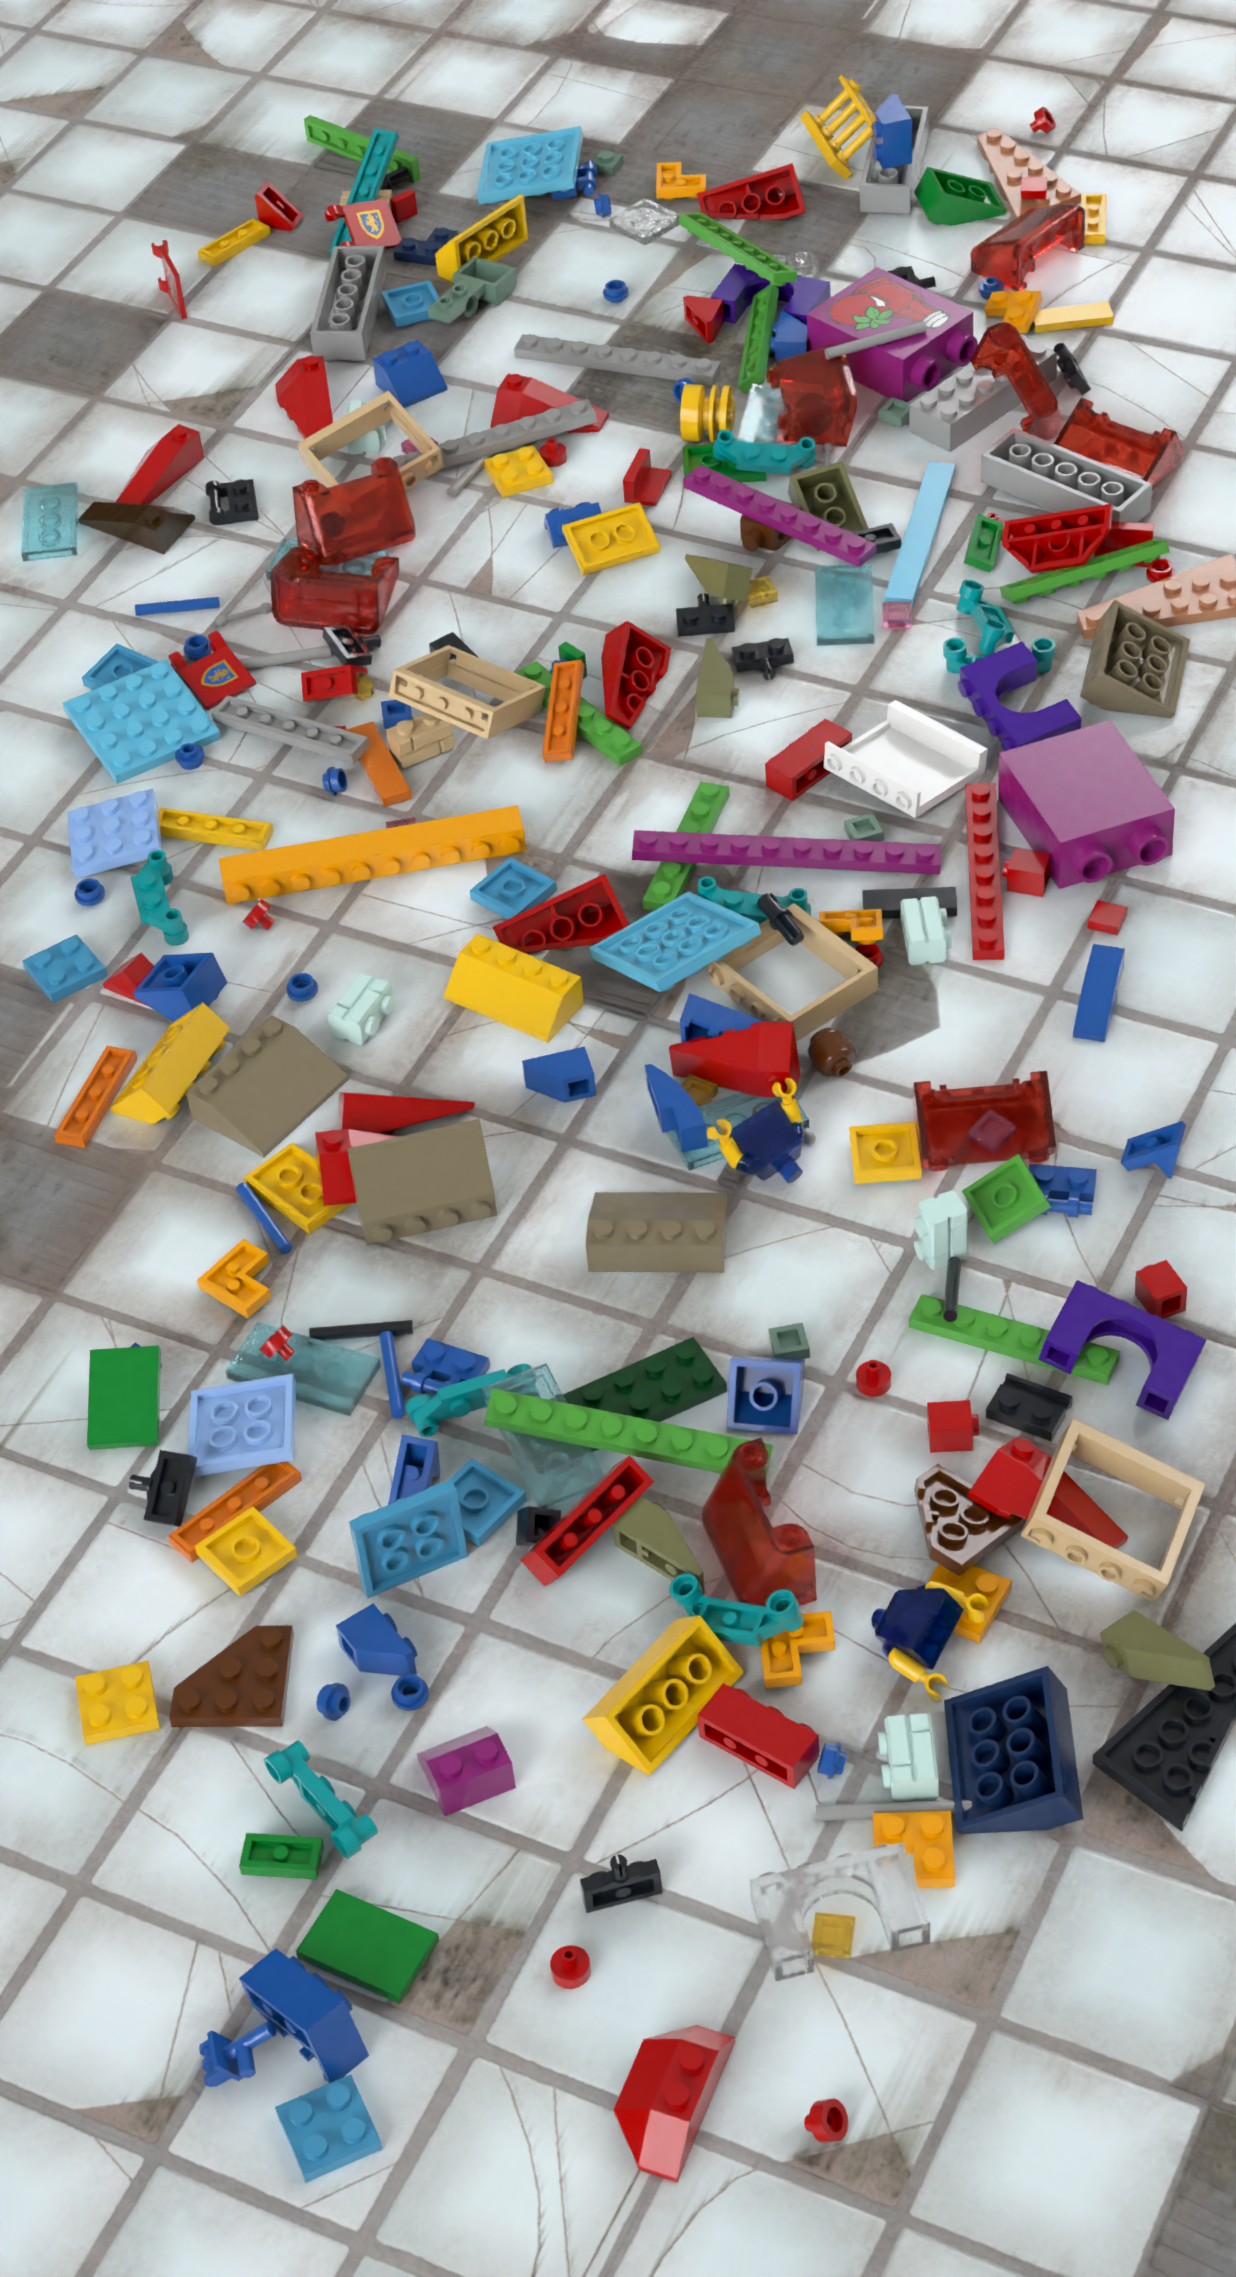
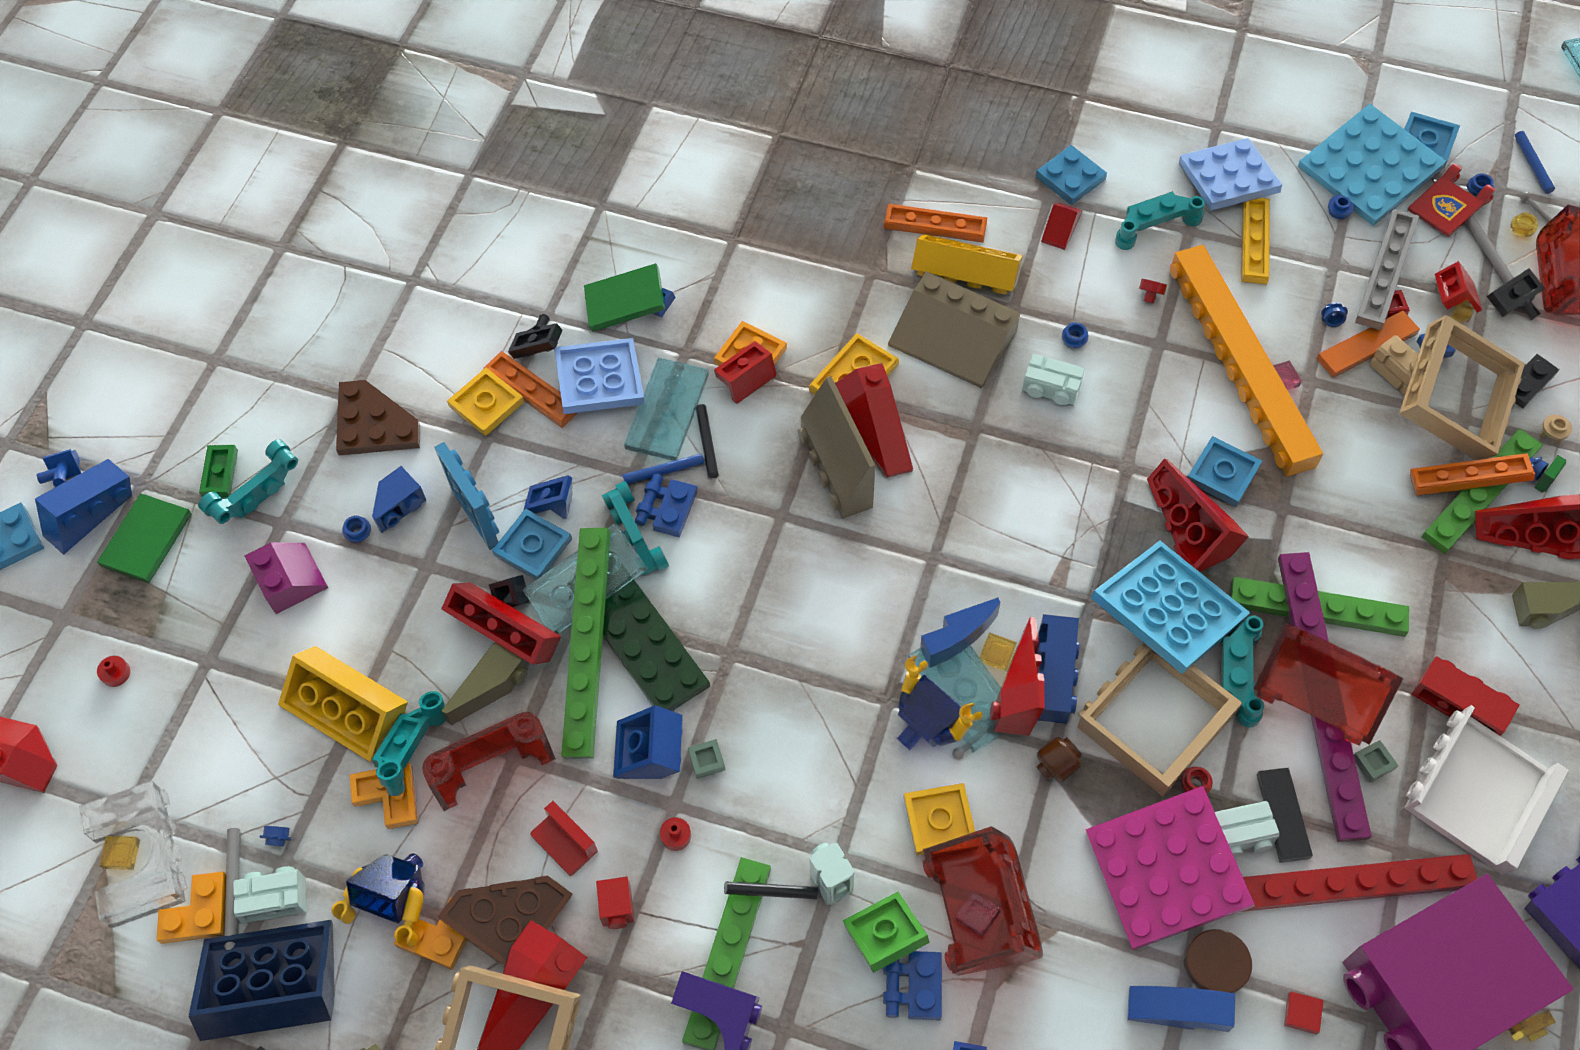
camera: 80 degrees right, 15 degrees up
(89, 892) = (1158, 172): blue plate -> none
(117, 1702) = (358, 350): yellow plate -> none
(181, 984) = (1053, 250): blue slope -> none
(260, 626) = (1524, 224): none -> clear yellow plate
(264, 1218) = (819, 355): blue bar -> none
(273, 1275) = (747, 371): none -> red panel
(278, 1343) = (674, 382): red tile -> none
(333, 1701) = (347, 480): blue plate -> none
(385, 1113) = (936, 411): red wedge -> none
(514, 988) = (1096, 489): yellow slope -> none
(521, 646) = (1556, 427): none -> tan plate
(561, 1075) = (998, 542): blue slope -> none
(621, 1884) = (166, 685): black plate -> none
(657, 1232) = (831, 639): dark tan slope -> none
(759, 1735) = (298, 777): red brick -> none
(780, 919) = (1210, 691): black axle -> none
(789, 828) = (1327, 683): none -> clear red windscreen
(863, 924) = (1237, 766): light orange plate -> none
(867, 1475) = (564, 840): none -> red panel
(959, 982) = (1169, 868): none -> dark pink plate
(1027, 872) = (1347, 924): red brick -> none
(1029, 1407) = (648, 971): black plate -> none
(1055, 965) = (1218, 961): none -> reddish brown tile

